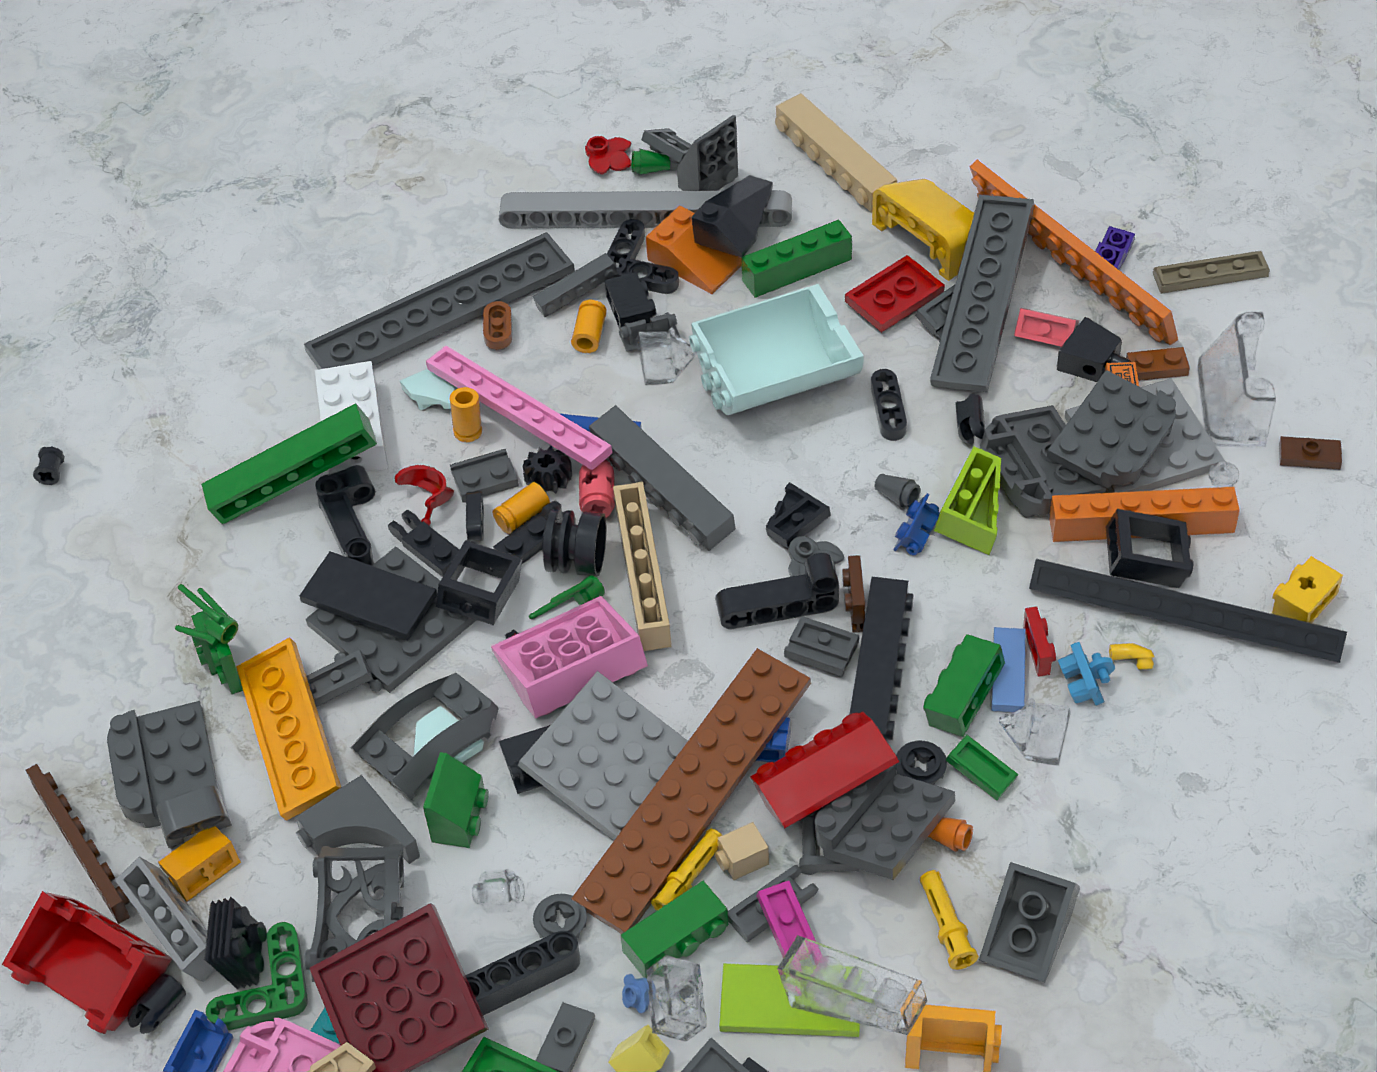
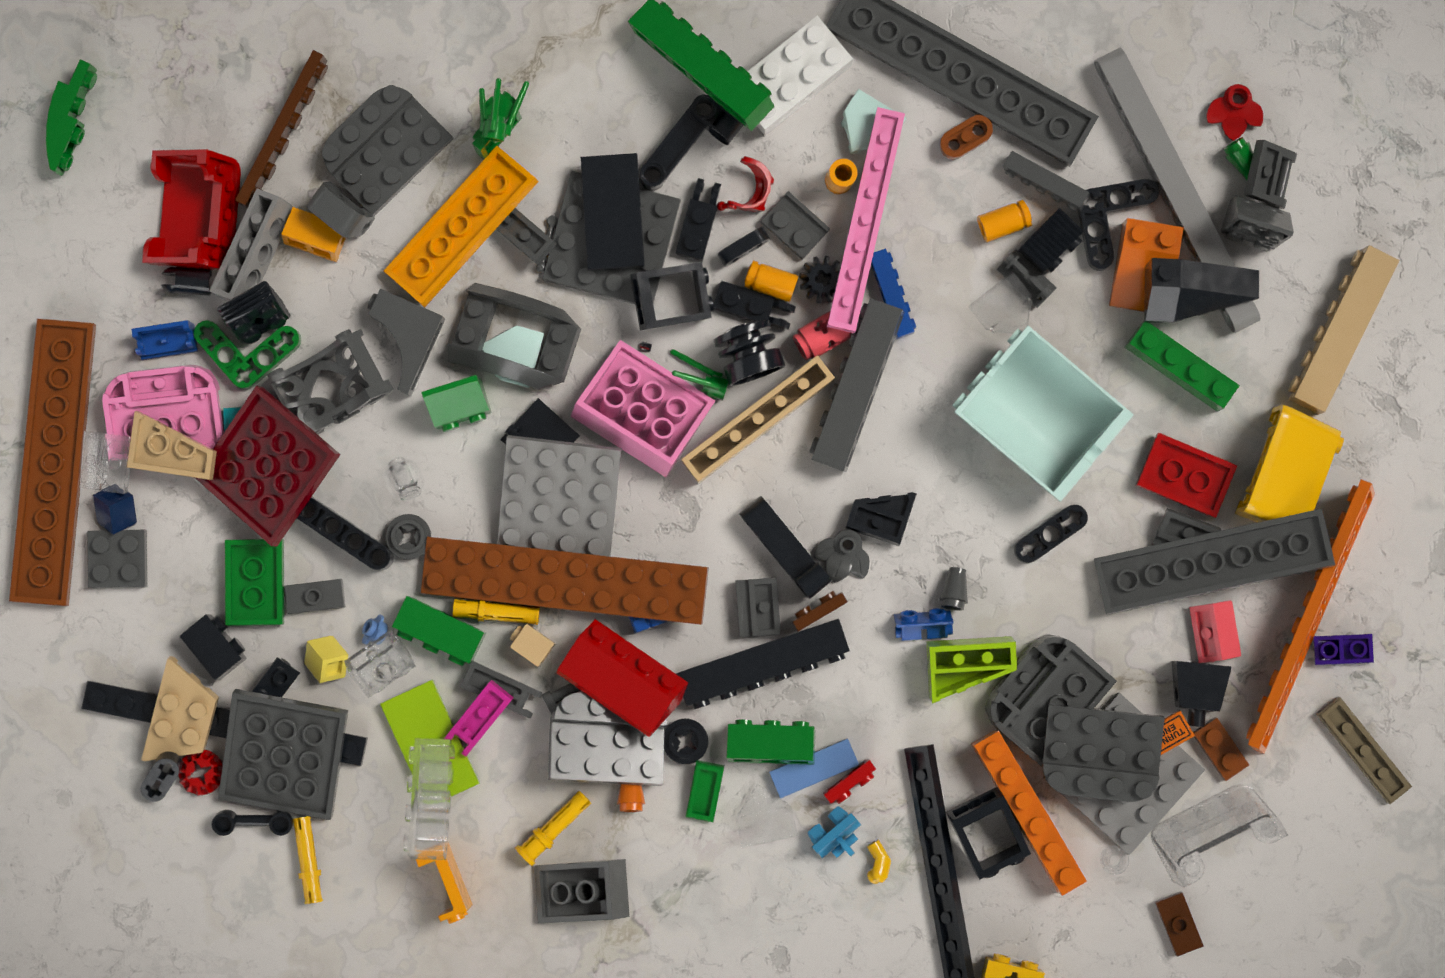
camera: 60 degrees right, 35 degrees up
(970, 418) = (1064, 616): black piece -> none

